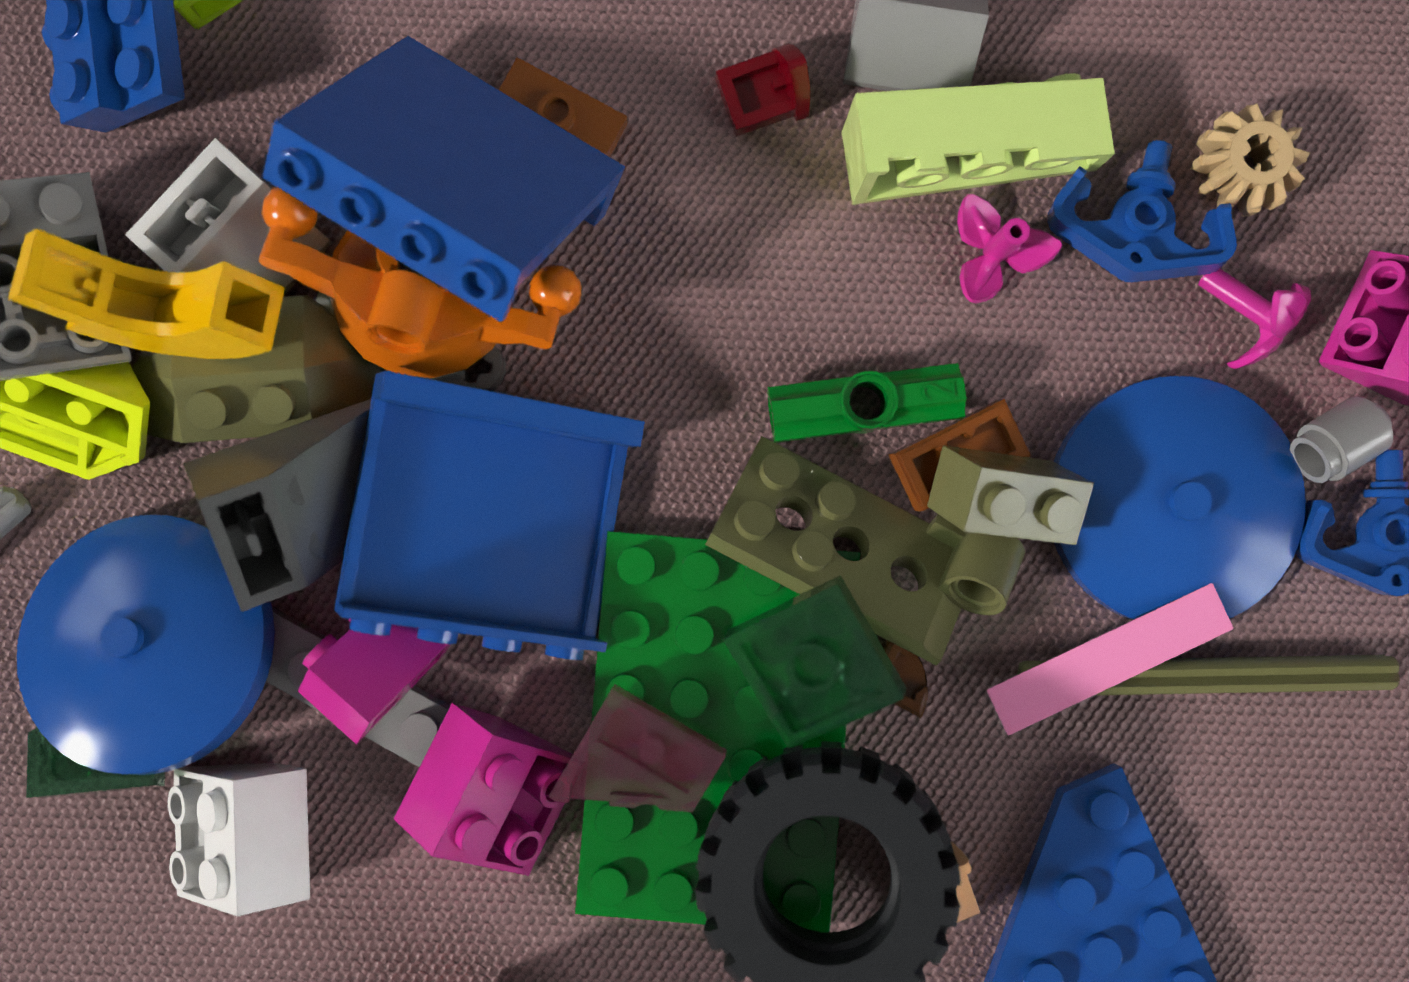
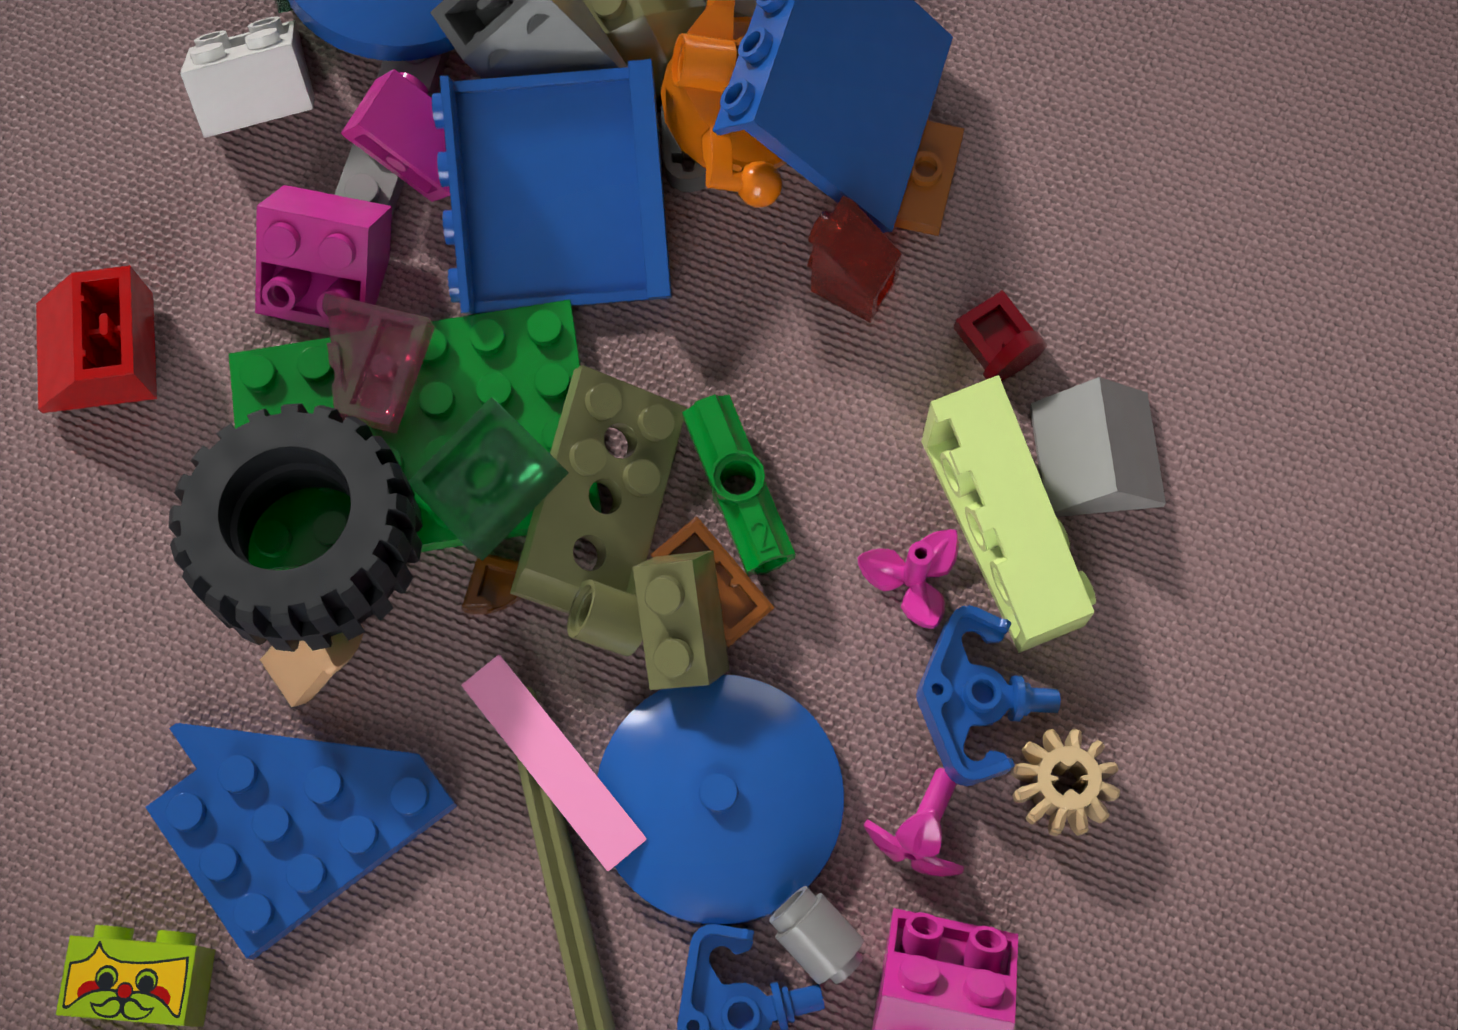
camera: 90 degrees right, 15 degrees down
(653, 217) = (852, 260): none -> clear red slope

